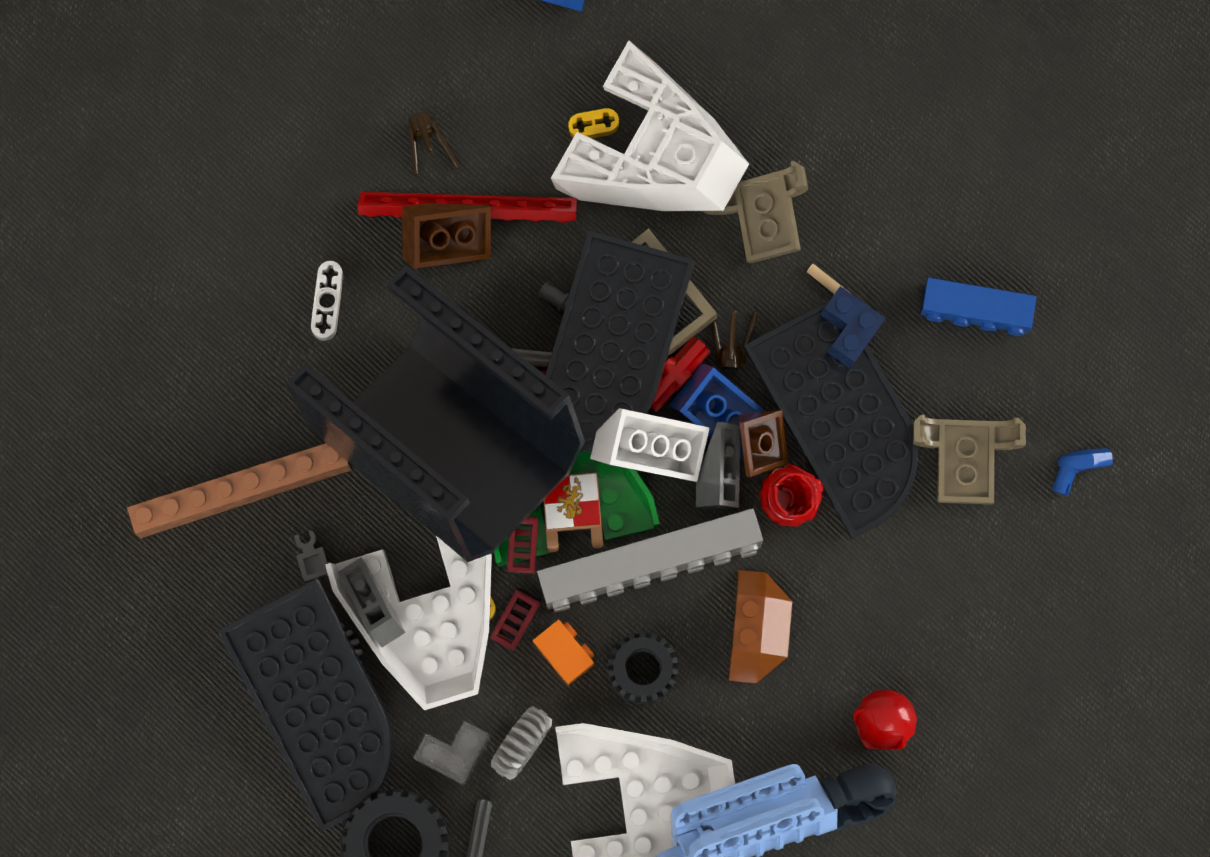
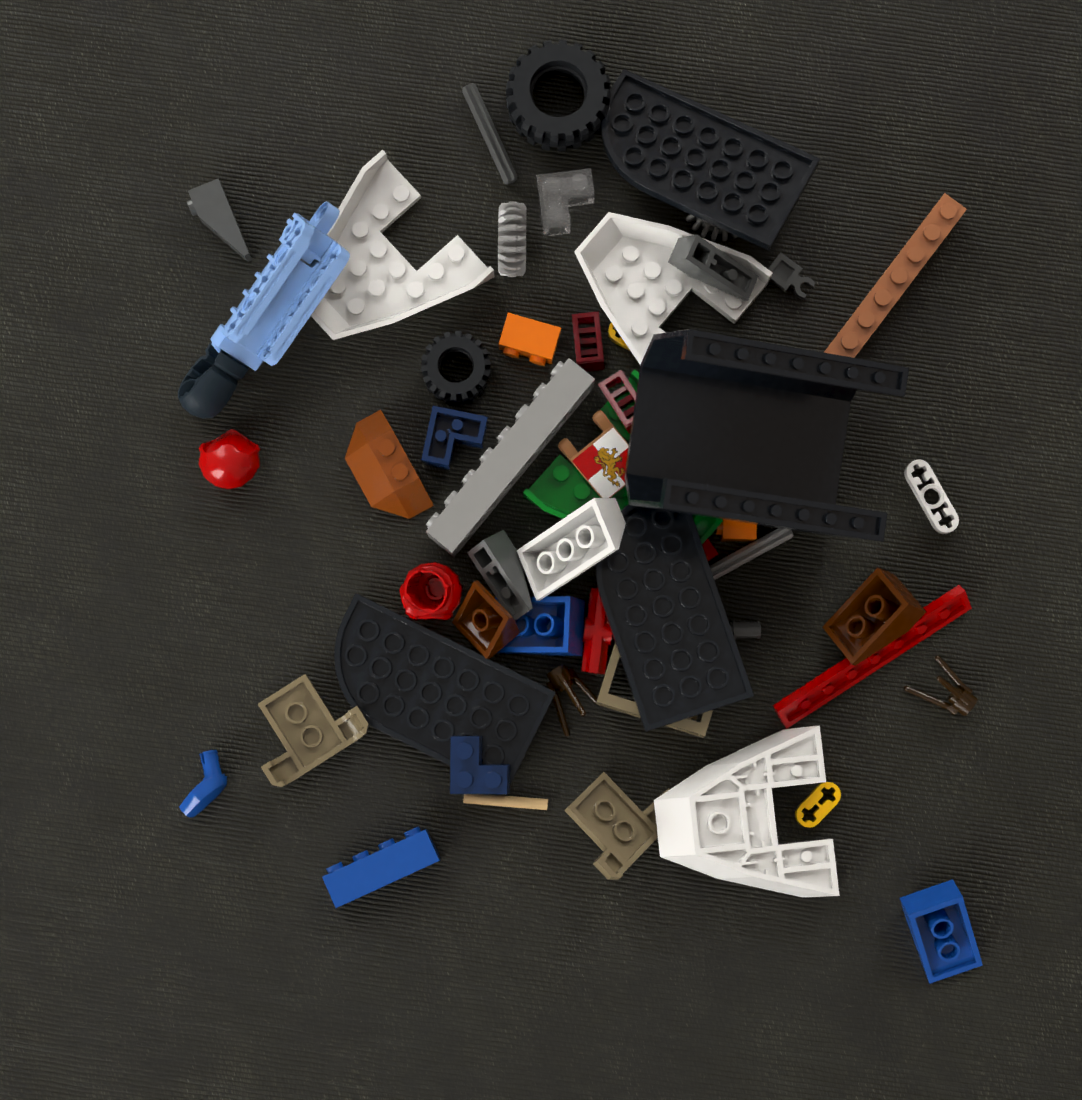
camera: 140 degrees right, 5 degrees up
(683, 620) = (448, 428): none -> dark blue brick

